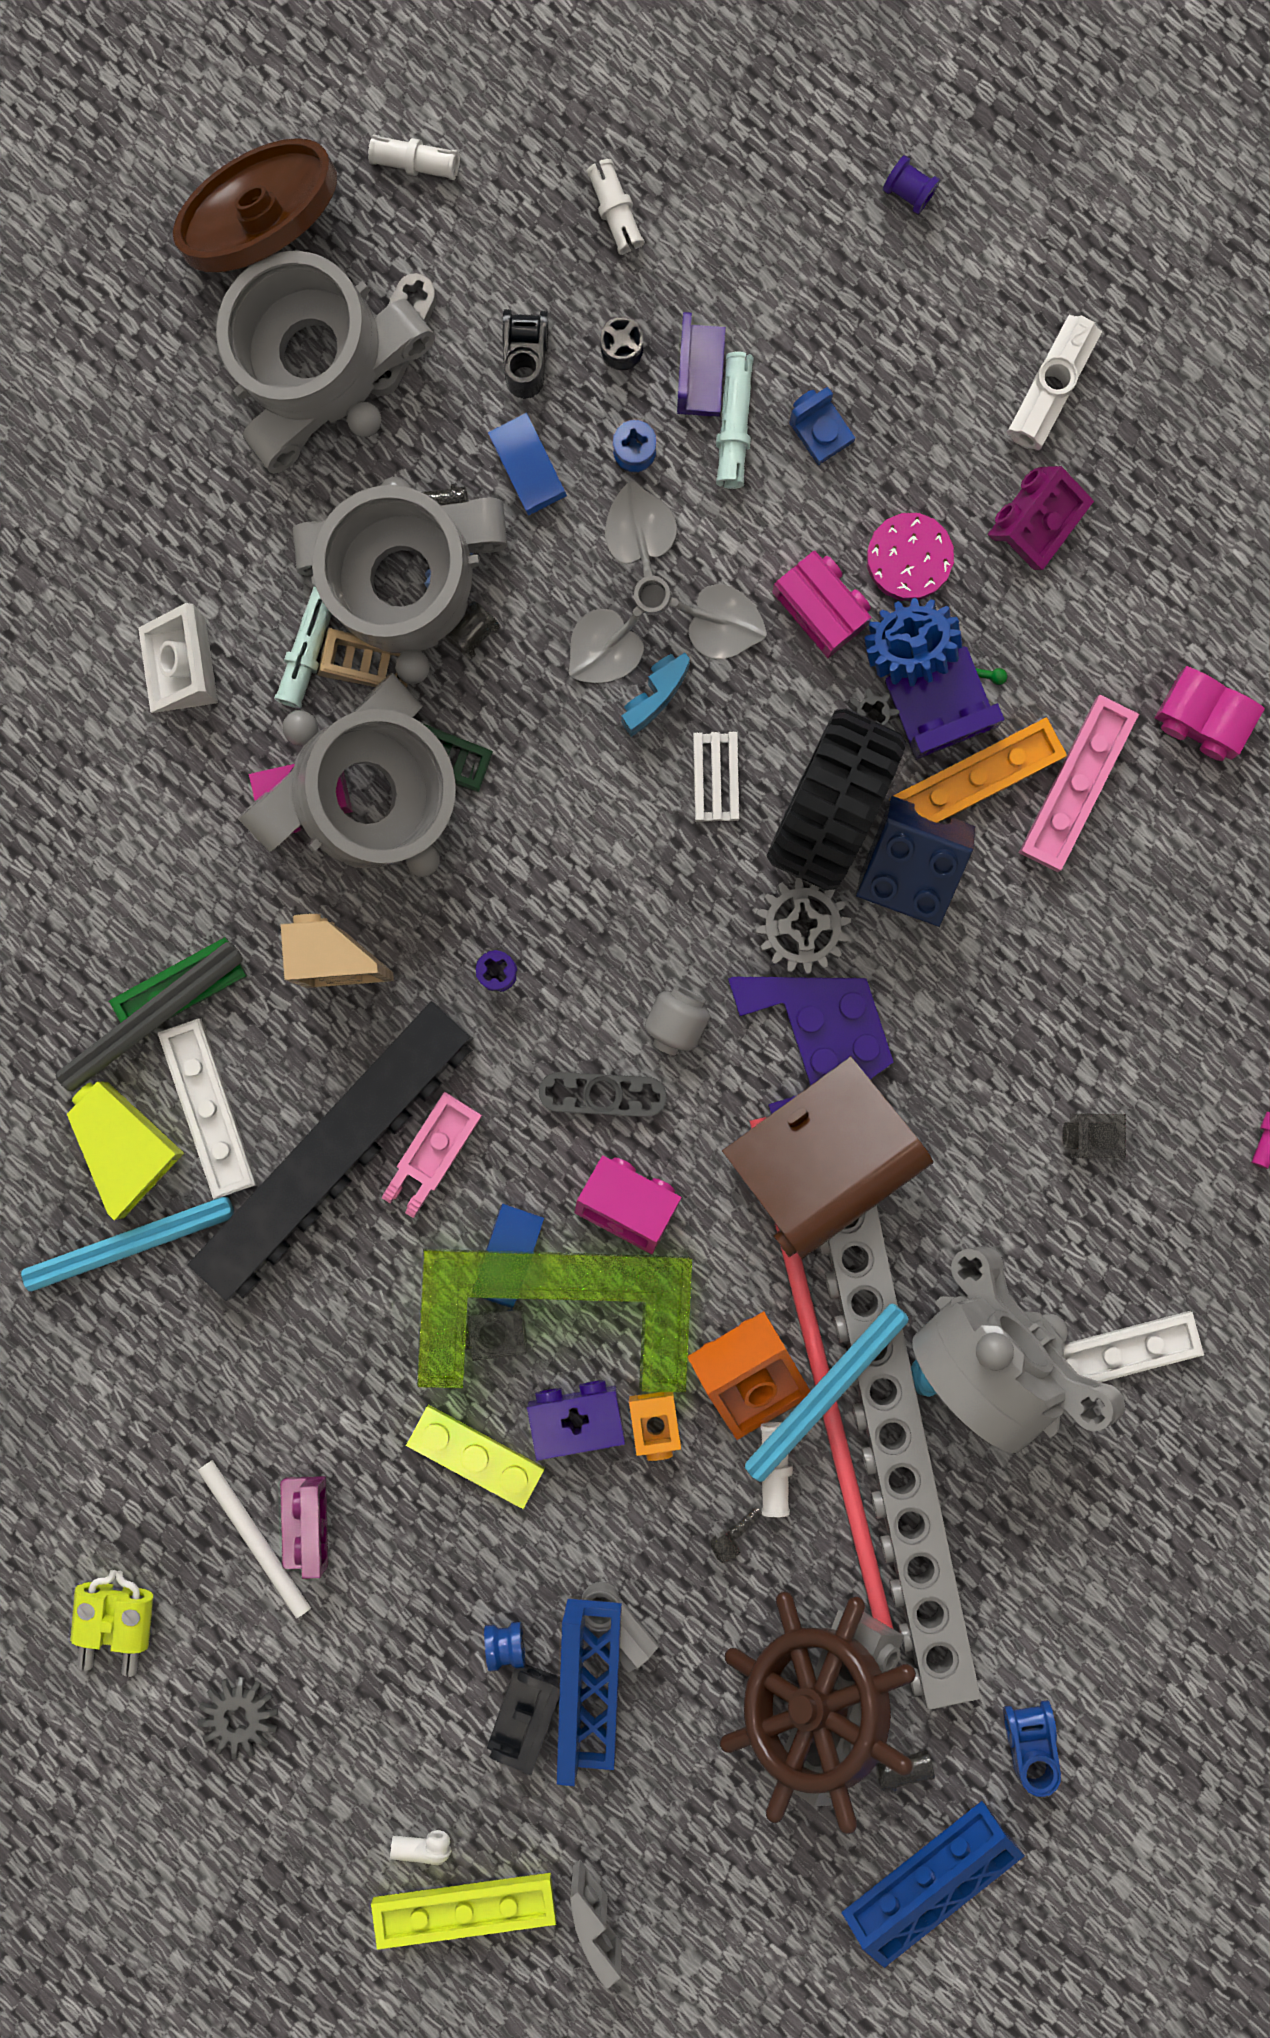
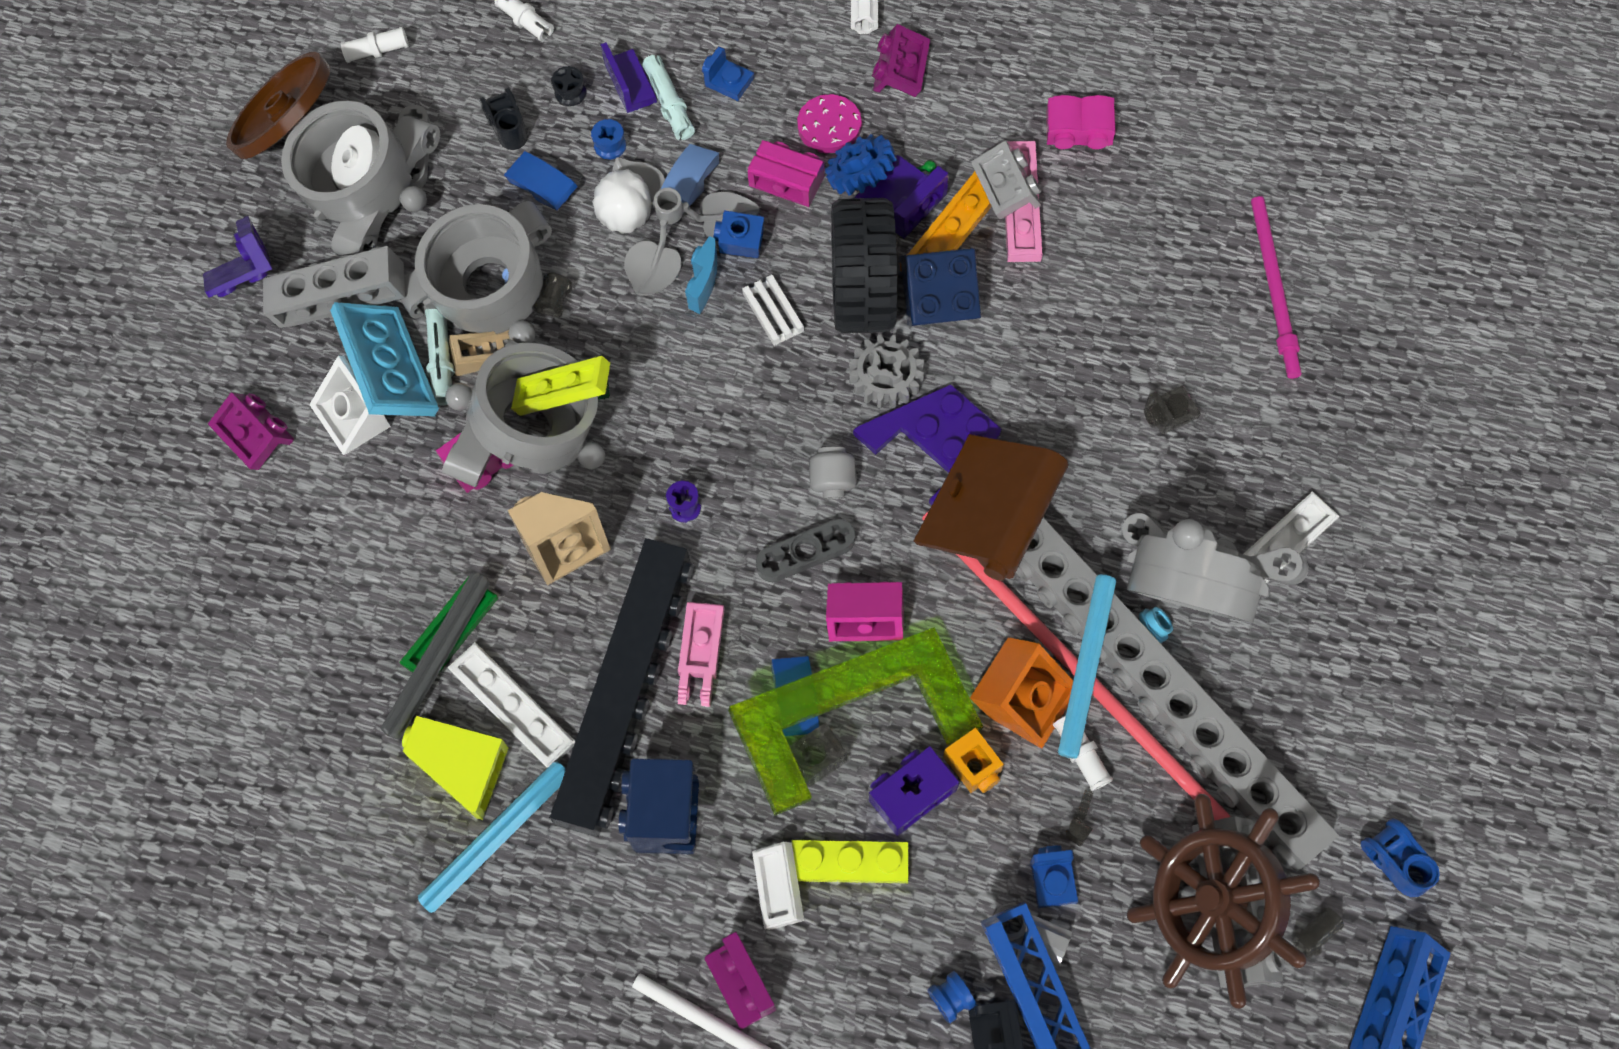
camera: 25 degrees left, 20 degrees down
(58, 630) = (249, 428): none -> magenta bracket
(125, 411) = (250, 266): none -> dark purple bracket
(239, 625) = (384, 360): none -> medium azure tile
(278, 523) = (354, 279): none -> light grey brick
(304, 1313) = (660, 806): none -> dark blue piece
(313, 337) = (354, 155): none -> white plate
(389, 1446) = (778, 885): none -> white tile
(414, 784) = (561, 386): none -> neon yellow plate
(609, 545) = (622, 201): none -> white hair
(672, 1580) = (1053, 877): none -> blue bracket
(705, 546) = (690, 171): none -> medium blue slope
(723, 663) = (739, 234): none -> blue brick
(1071, 757) = (1005, 179): none -> light grey bracket

